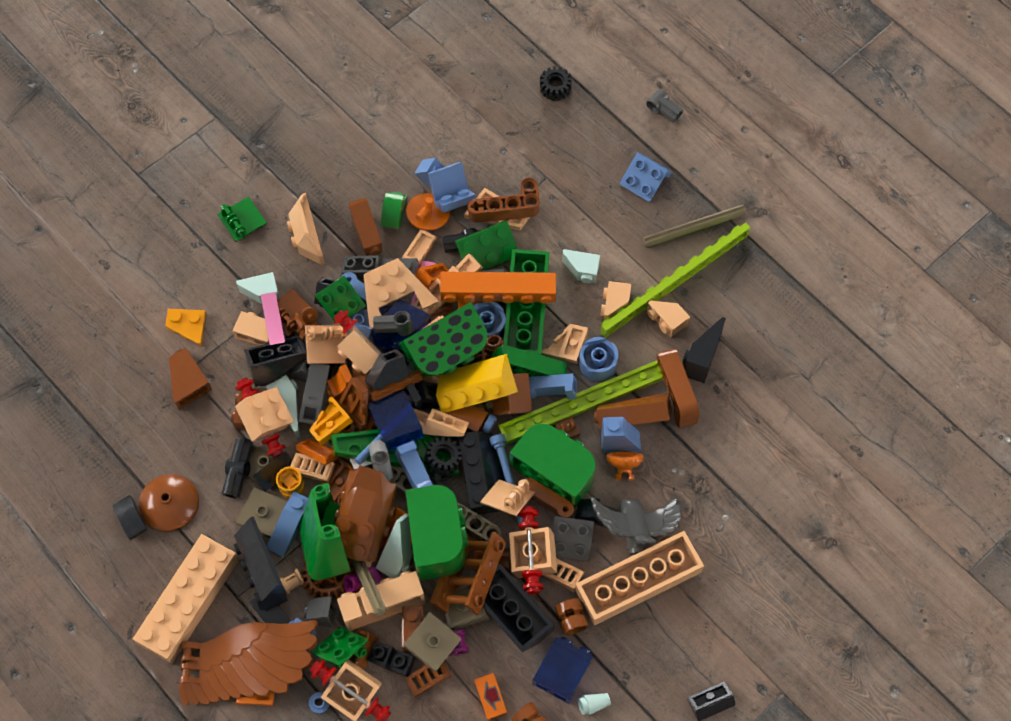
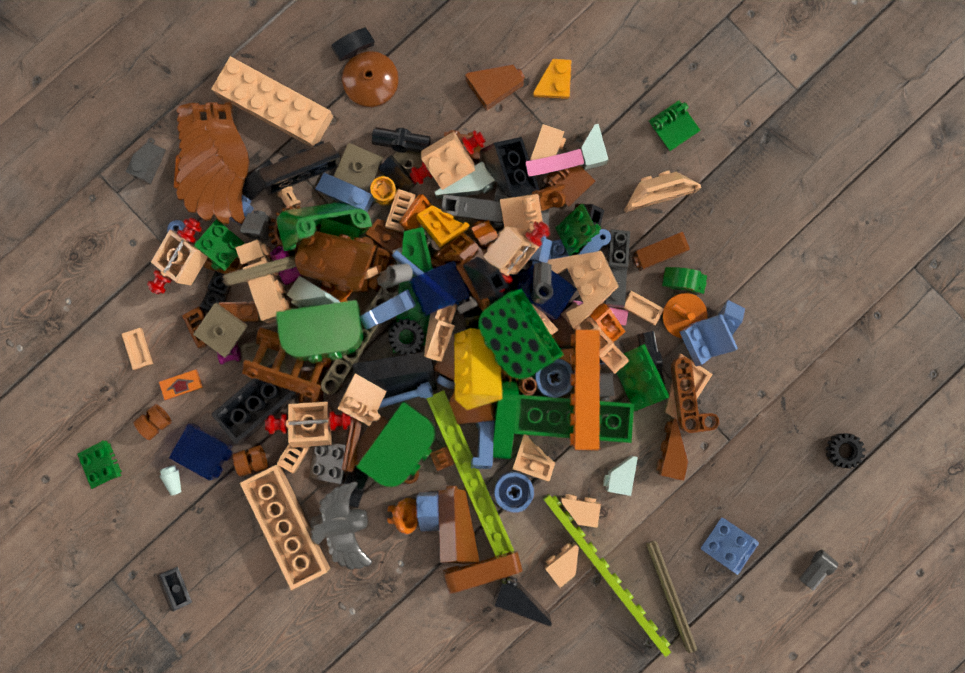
camera: 85 degrees right, 20 degrees up
(556, 510) = (351, 445): none -> dark orange axle
(562, 221) = (674, 458): none -> dark orange slope

